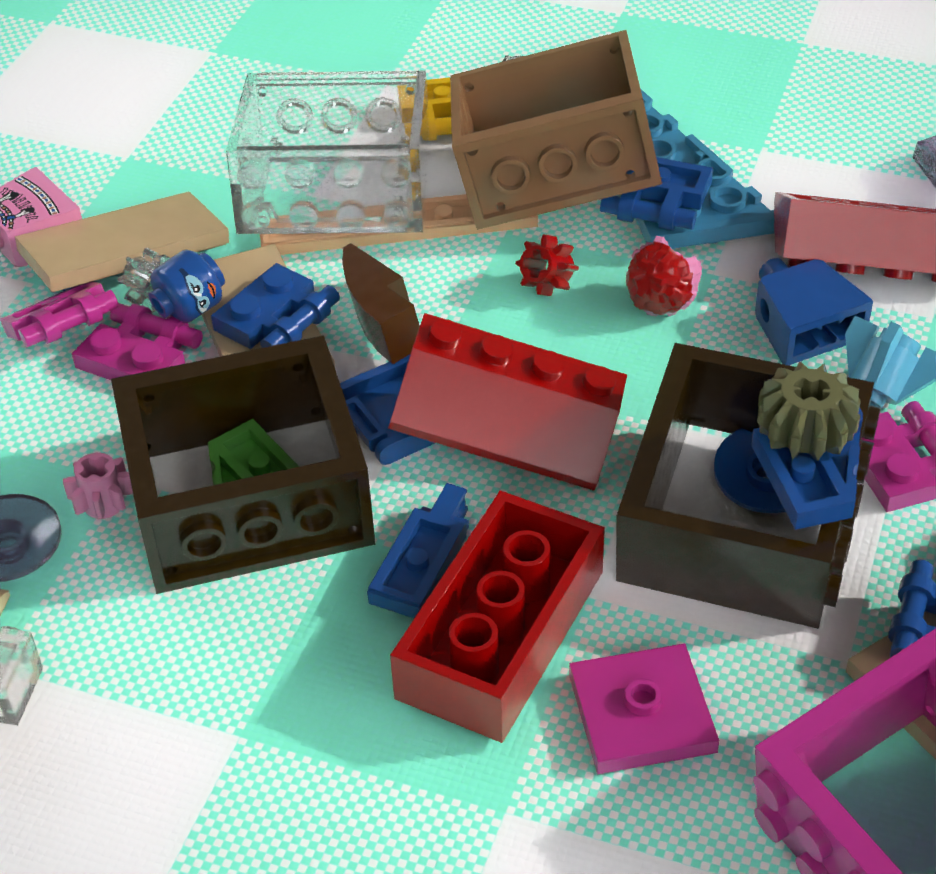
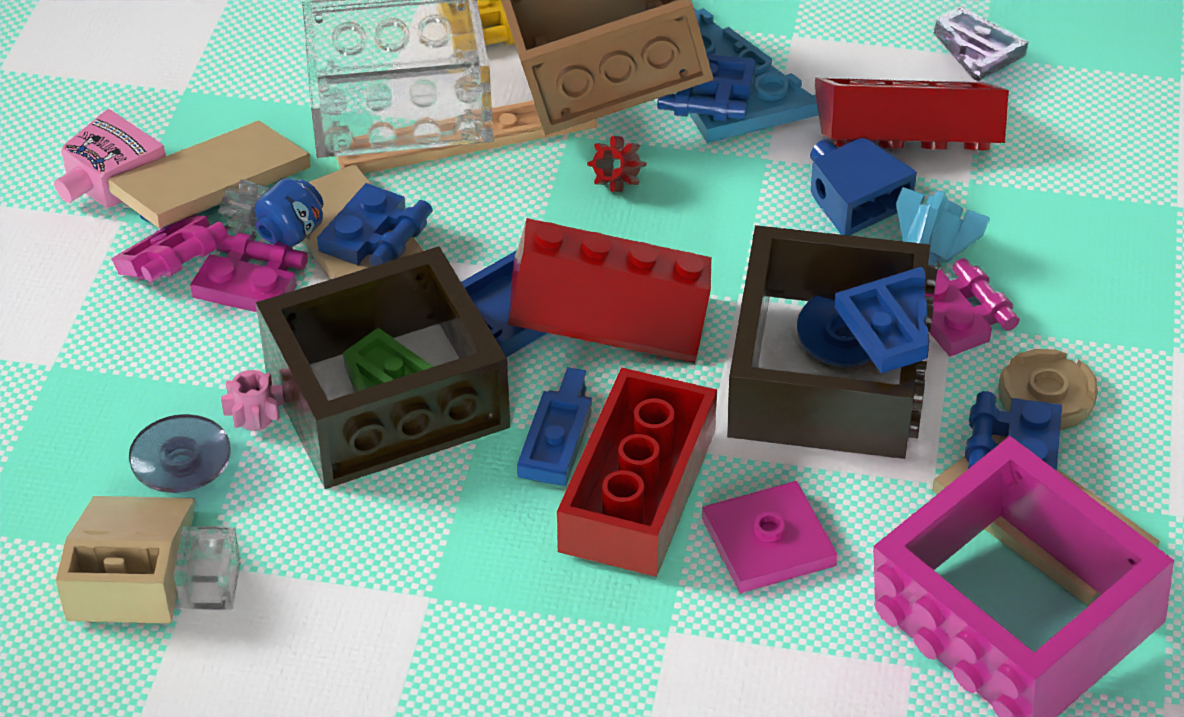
camera: 10 degrees left, 0 degrees up
(380, 304) = (473, 213): reddish brown slope -> none
(662, 278) = (724, 167): red piece -> none
(808, 411) = (881, 273): olive gear -> none

